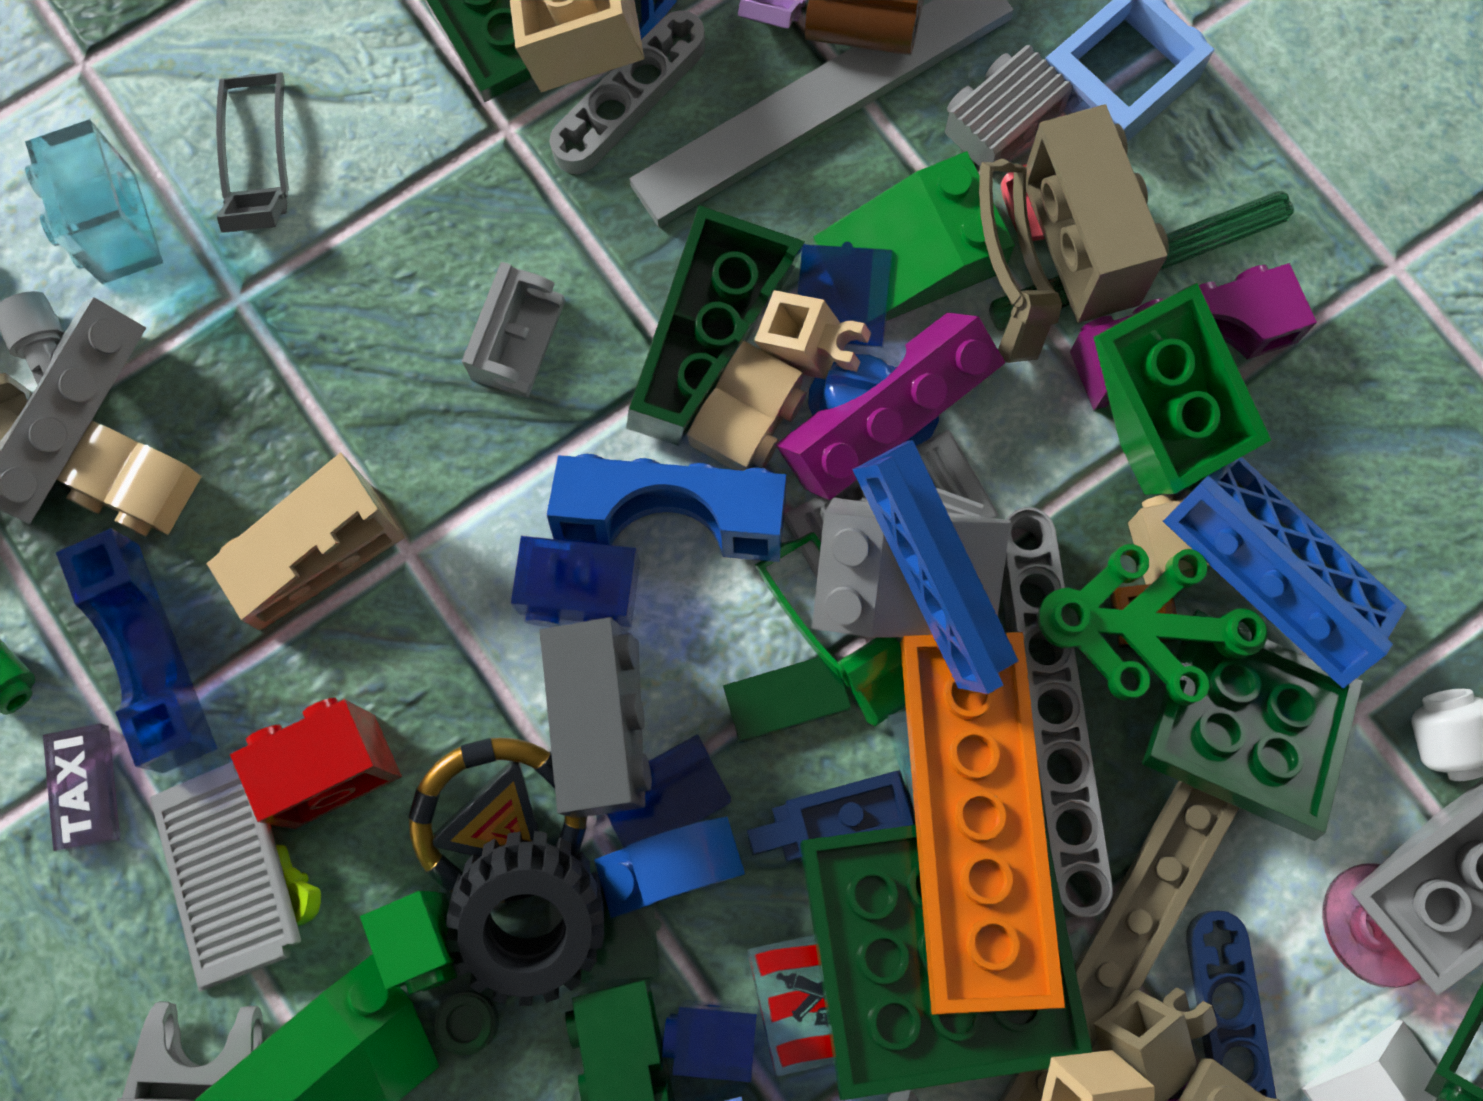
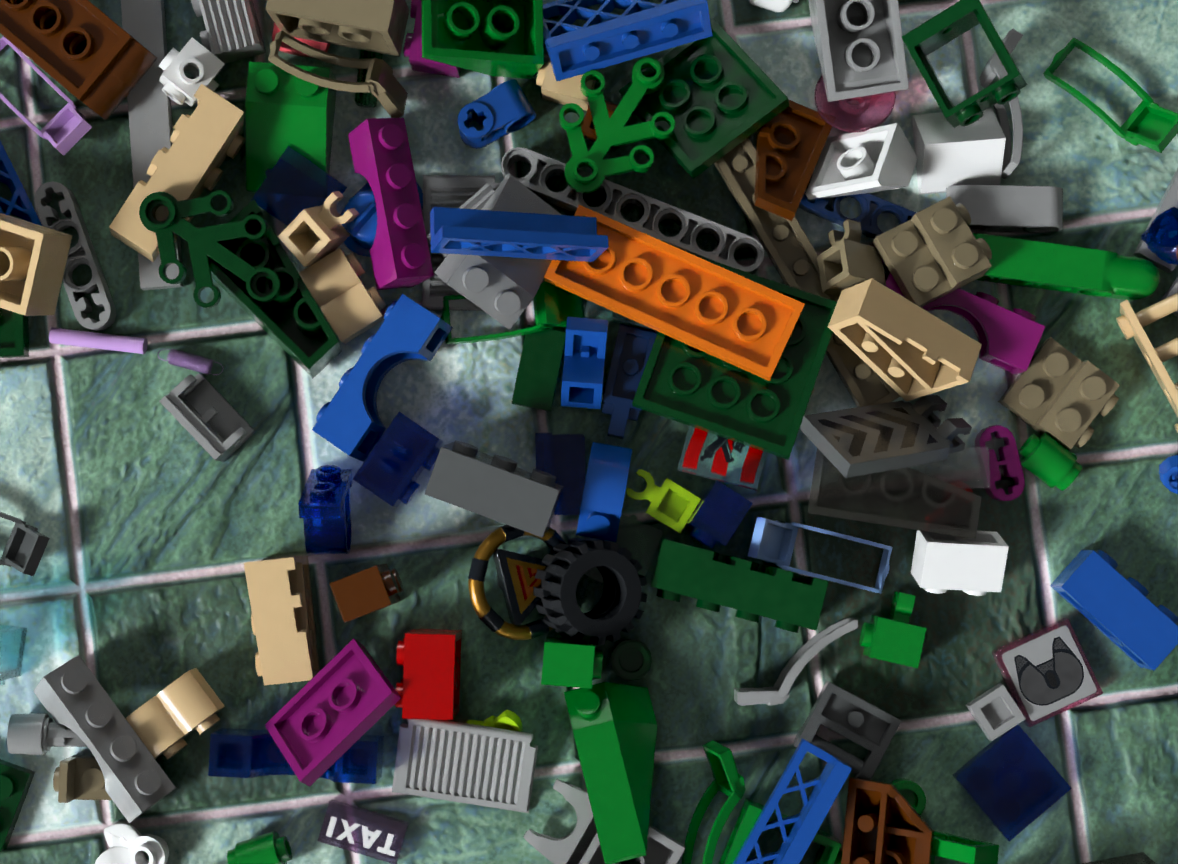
camera: 65 degrees left, 10 degrees up
(203, 663) = (332, 712): none -> magenta plate
(383, 627) = (367, 591): none -> reddish brown brick
(466, 527) = (327, 510): none -> clear blue pin
(543, 167) = (98, 340): none -> lavender piece
(572, 279) = (190, 361): none -> lavender piece
(699, 963) = (668, 504): none -> lime plate
(715, 206) = (204, 243): none -> dark green plant
(787, 145) = (185, 169): none -> tan wedge
(823, 749) = (584, 362): none -> blue brick
(932, 97) = (192, 59): none -> white brick
(1079, 474) = (500, 112): none -> blue piece
(1244, 877) = (787, 157): none -> reddish brown wing
(1300, 987) = (863, 163): none -> white slope

